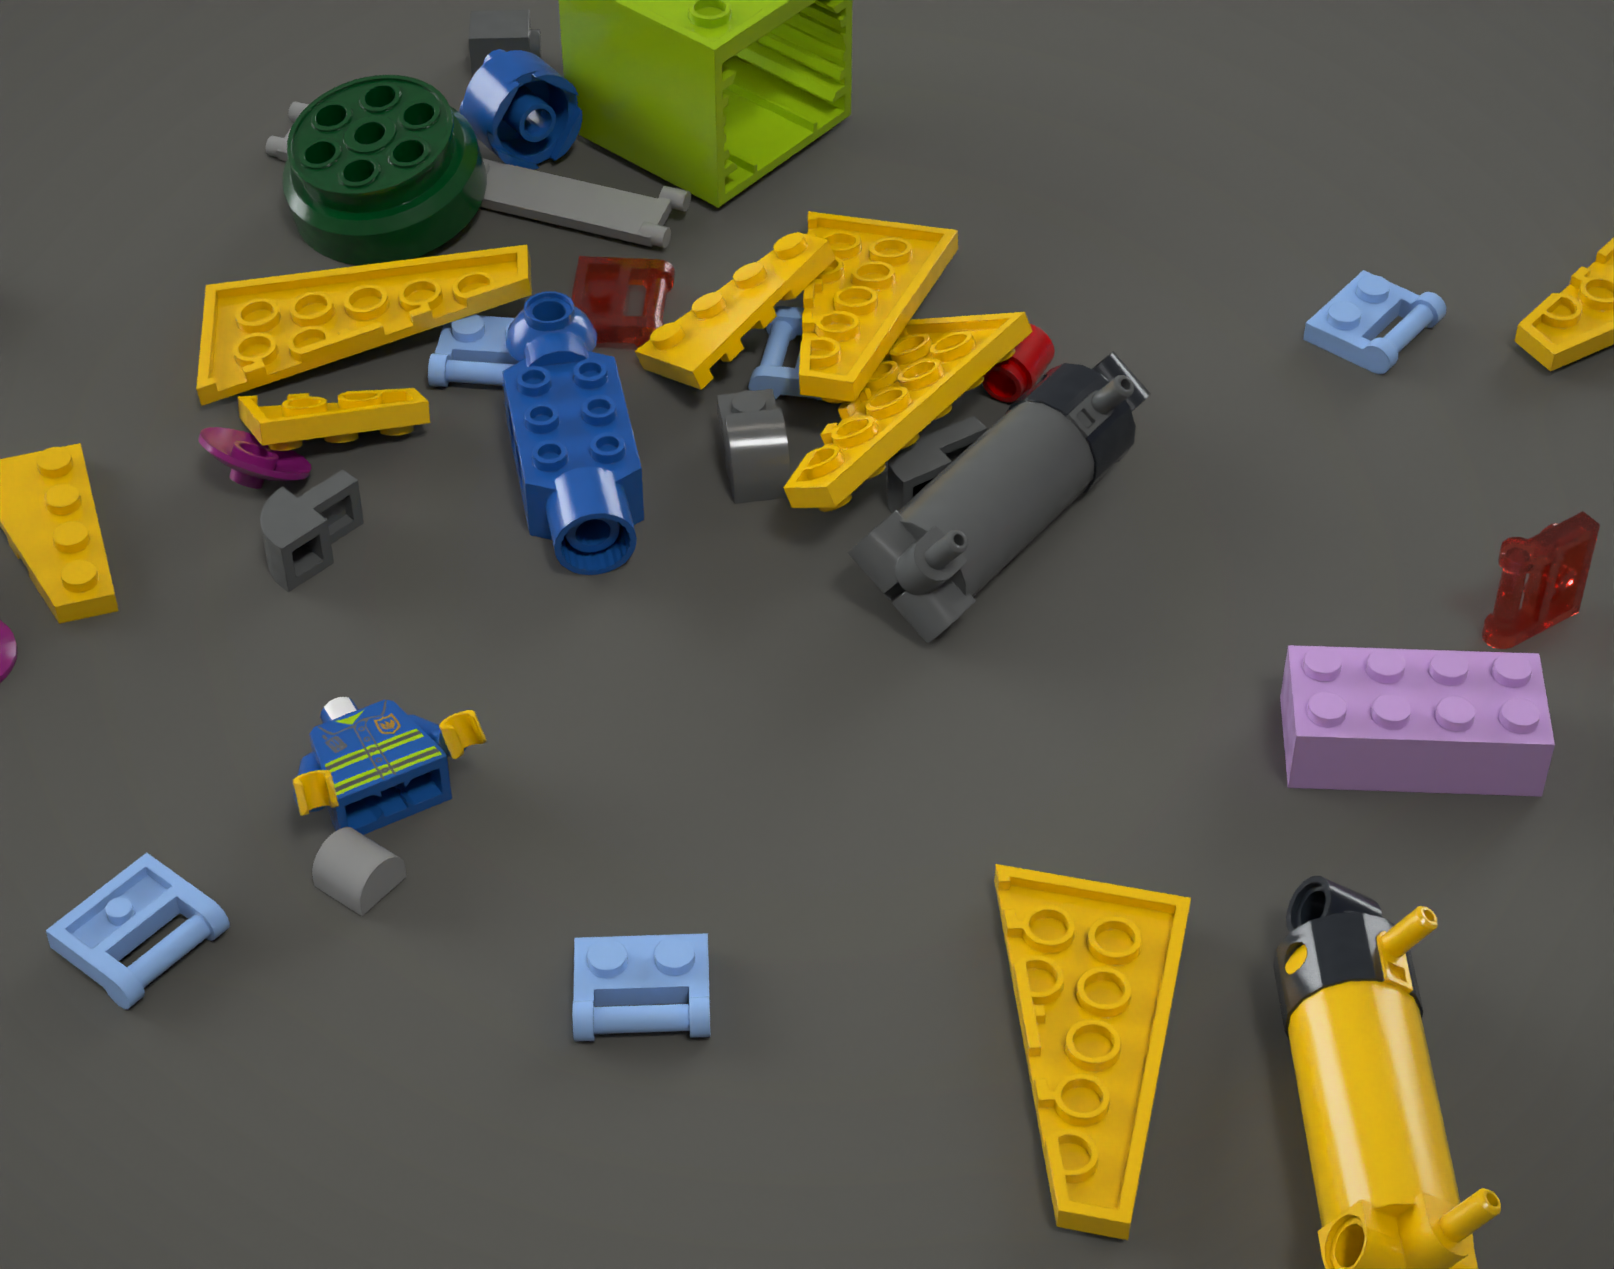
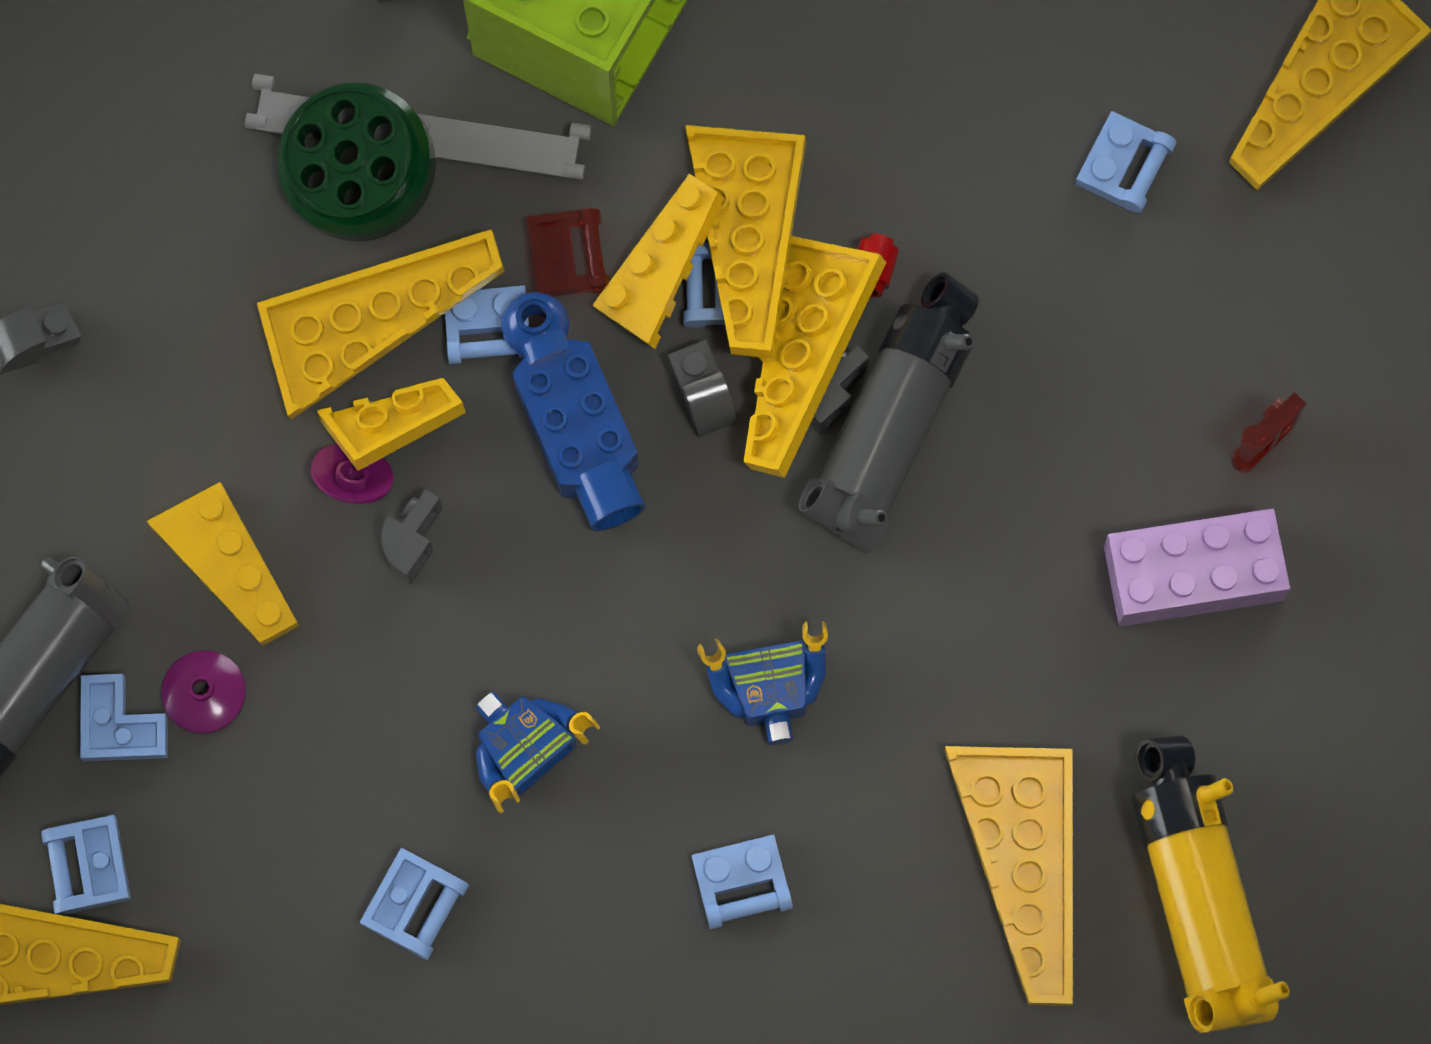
camera: 10 degrees left, 30 degrees up
(356, 870) = (537, 827): light grey brick -> none
(522, 108) = (442, 69): blue brick -> none
(753, 752) = (769, 682): none -> blue torso

